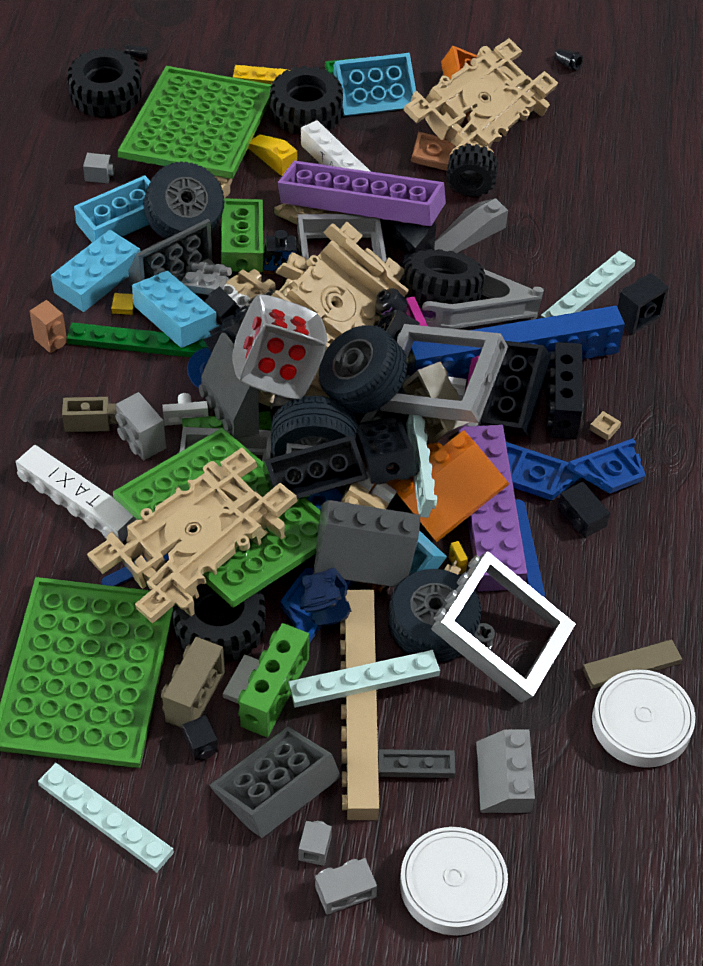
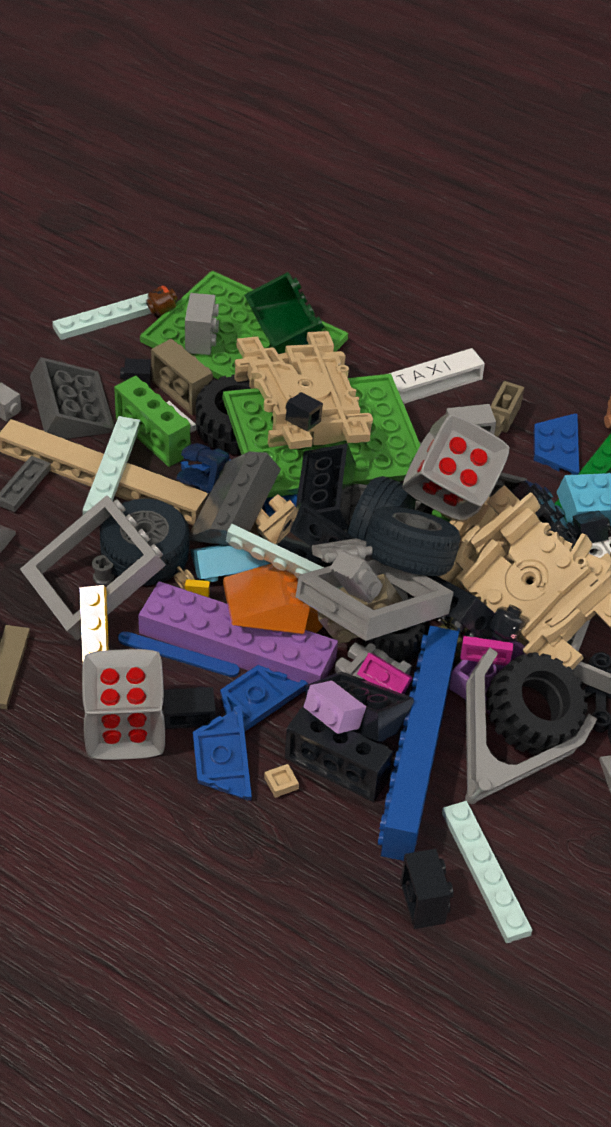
camera: 115 degrees right, 5 degrees down
(59, 621) = (283, 312): none -> dark green windscreen
(74, 763) = (161, 300): none -> reddish brown head
(104, 374) = (558, 443): none -> blue wing
(114, 689) = (201, 323): none -> light grey brick
(254, 495) = (303, 411): none -> black brick
(401, 417) = (331, 550): none -> light grey plate
(444, 375) = (356, 576): none -> light grey brick
(547, 382) = (334, 707): none -> lavender brick
(570, 594) = (94, 619): none -> plate
(631, 532) = (123, 704): none -> light grey piece

